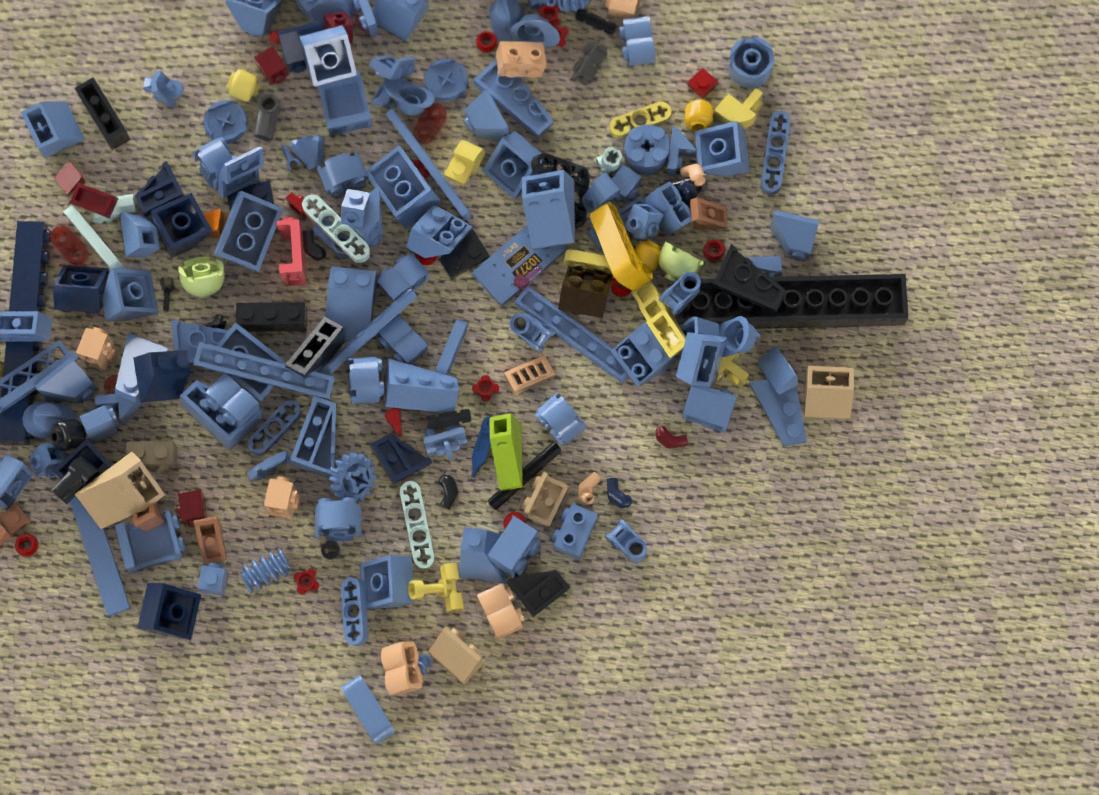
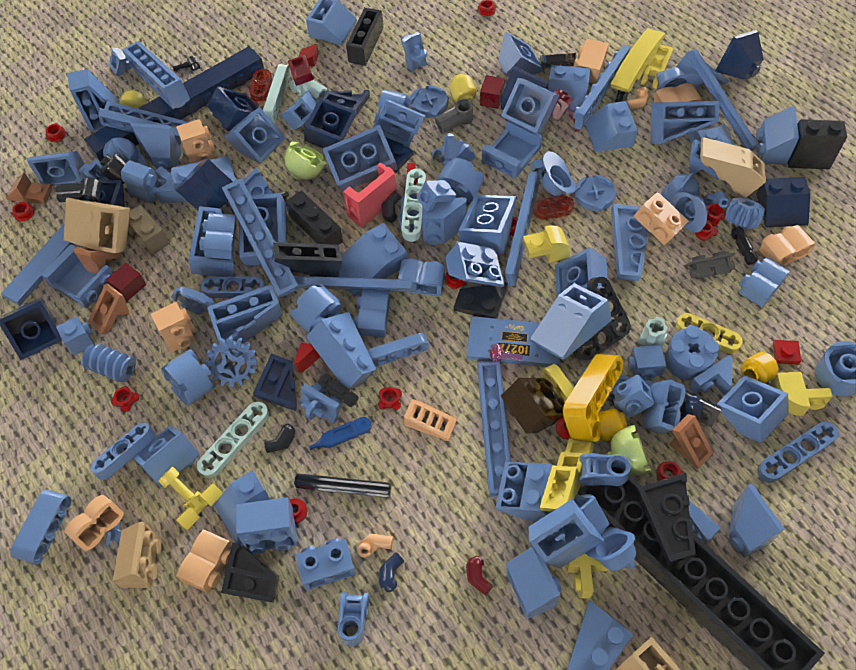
camera: 50 degrees right, 15 degrees down
(167, 290) = (281, 153): black hand -> none
(333, 554) = (160, 399): black hinge -> none
(393, 68) = (567, 150): medium blue bracket -> none
(485, 118) = (593, 228): medium blue slope -> none
(486, 35) = (648, 188): red plate -> none
(507, 450) = (349, 450): lime slope -> none
(535, 332) = (465, 394): medium blue piece -> none
(545, 500) = (333, 516): tan bracket -> none
(561, 418) = (410, 470): medium blue brick -> none
(600, 192) = (623, 344): medium blue piece -> none
(695, 173) = (711, 401): light nougat arm -> none
(778, 371) = (621, 616): medium blue slope -> none

